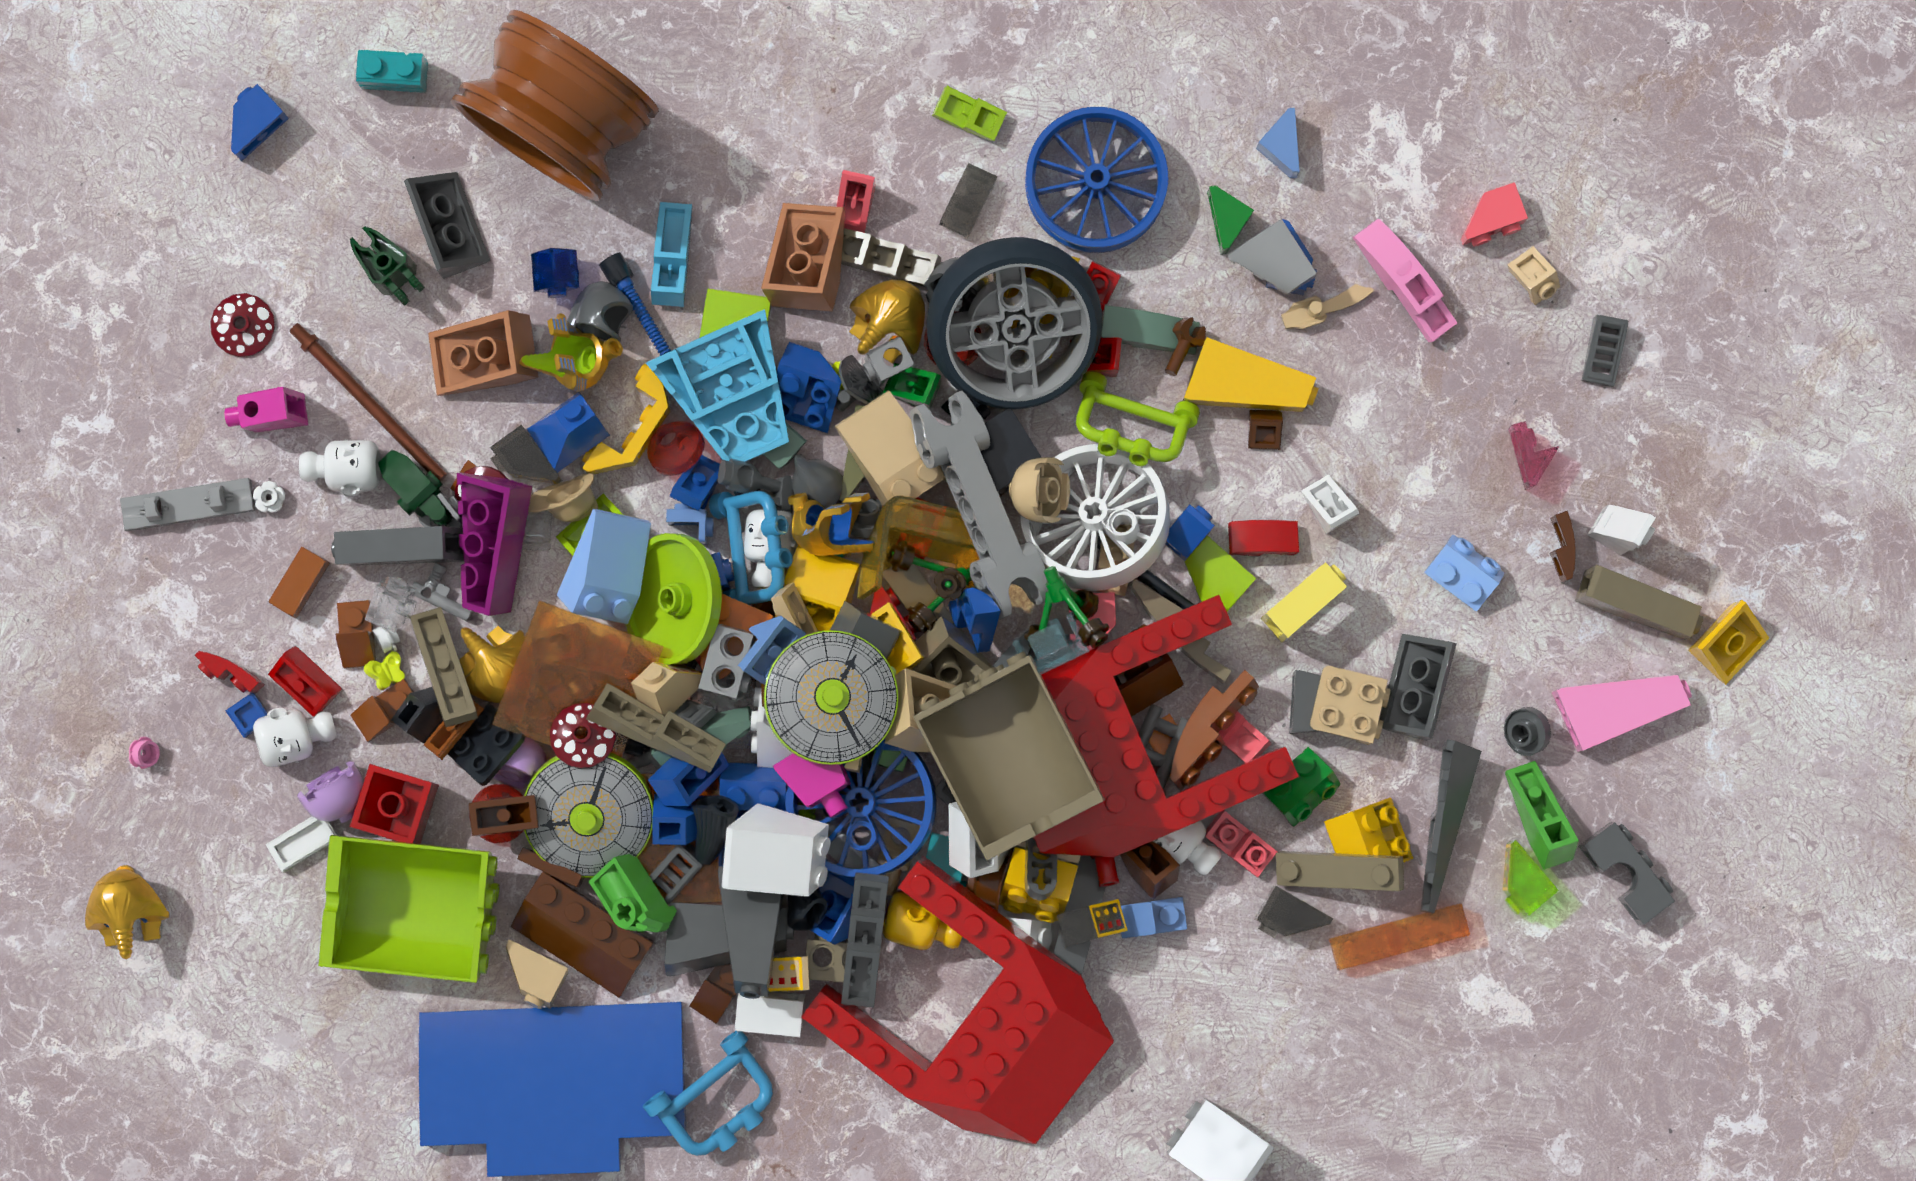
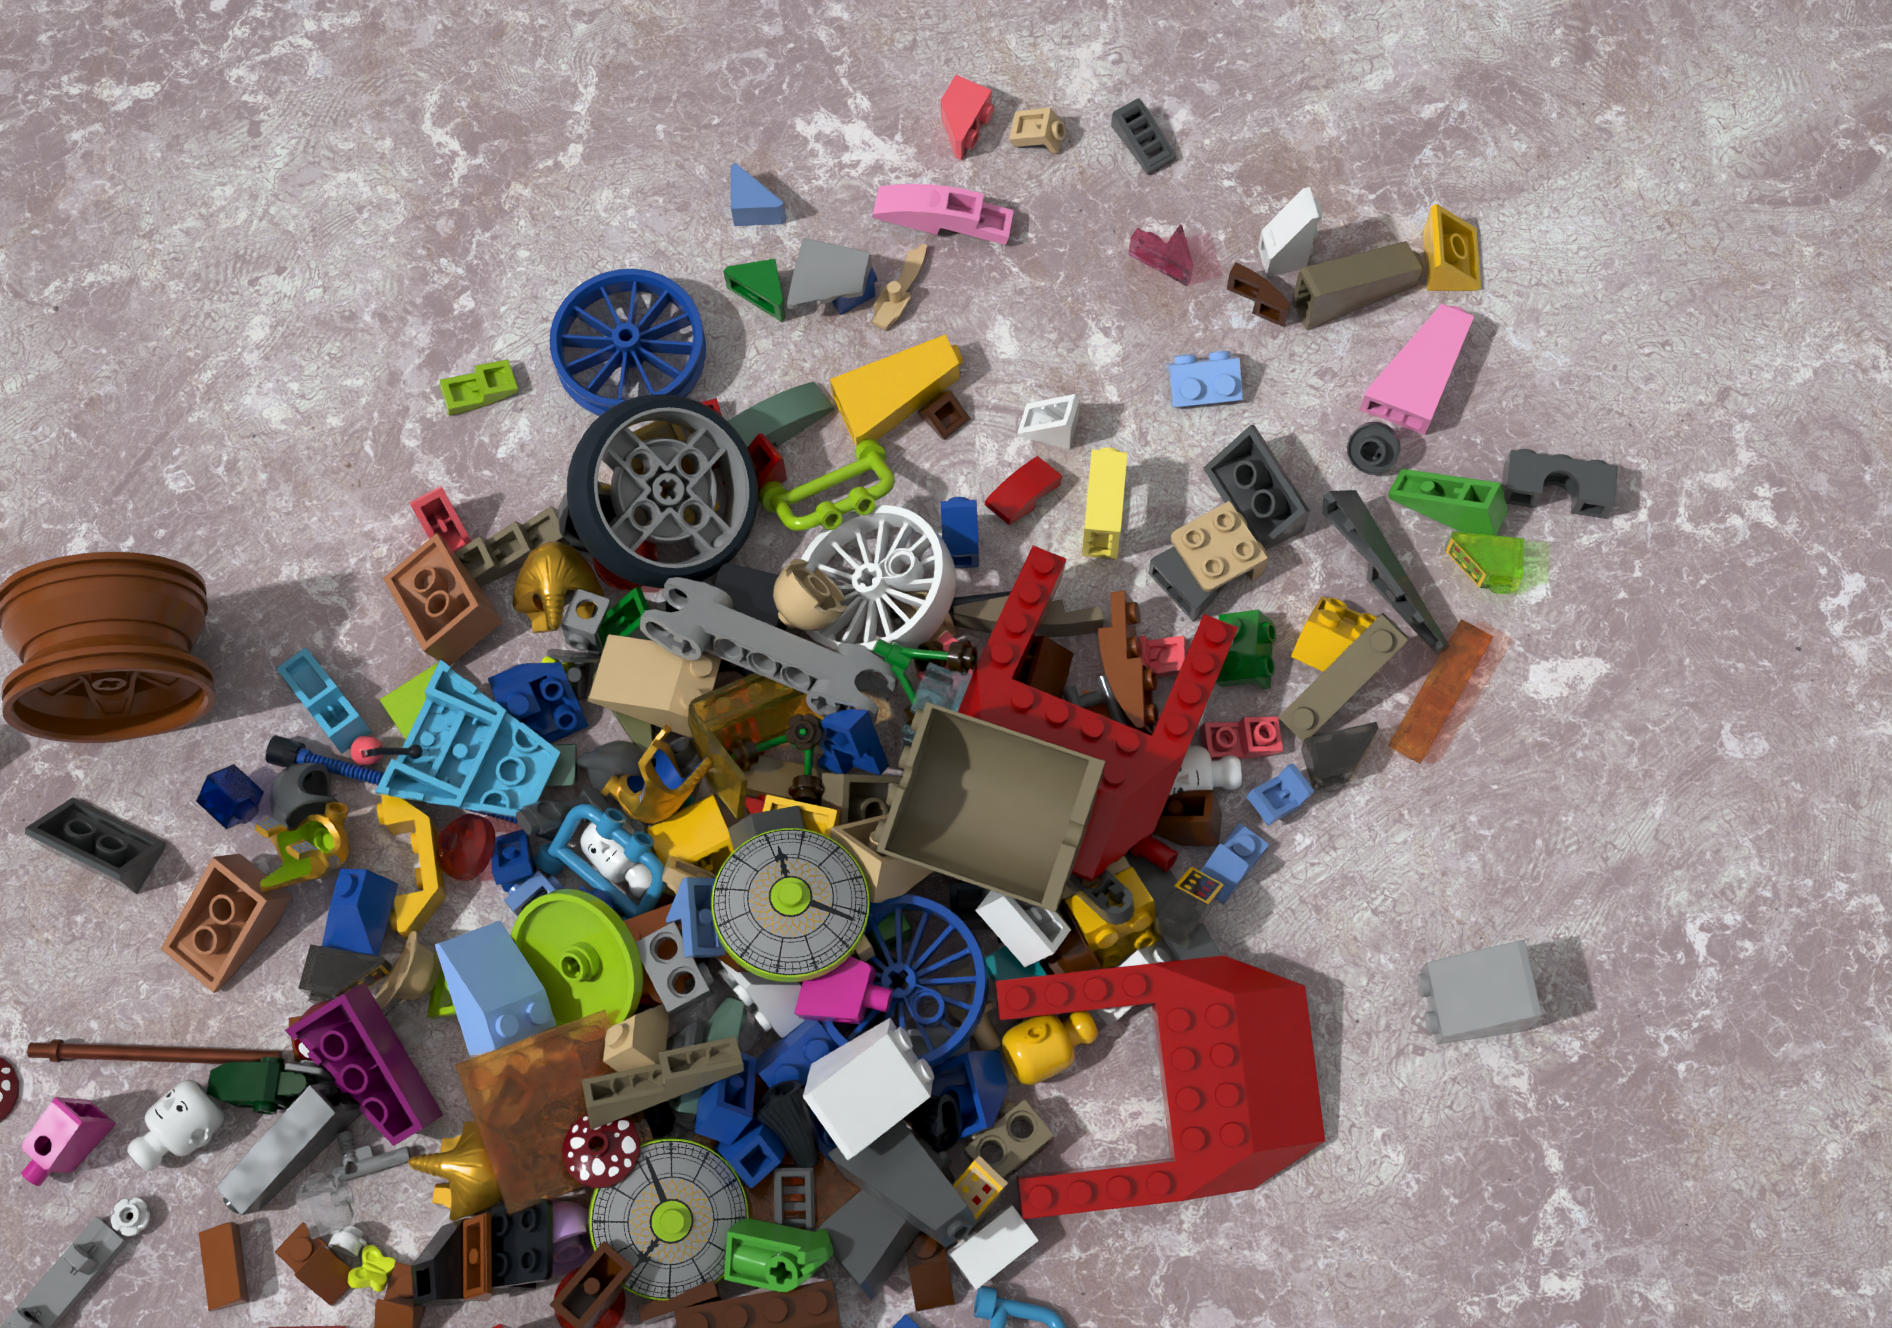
camera: 40 degrees left, 15 degrees down
(388, 268) = (71, 920): dark green hinge -> none
(443, 667) = (422, 1213): dark tan plate -> none
(674, 321) = (376, 750): none -> hinge
(864, 939) = (1015, 1095): dark grey slope -> none
(968, 200) = (538, 449): clear smoke slope -> none
(1185, 342) = (817, 398): reddish brown bar -> none
(1217, 573) = (1007, 545): lime slope -> none
(1225, 905) = (1281, 795): none -> medium blue bracket

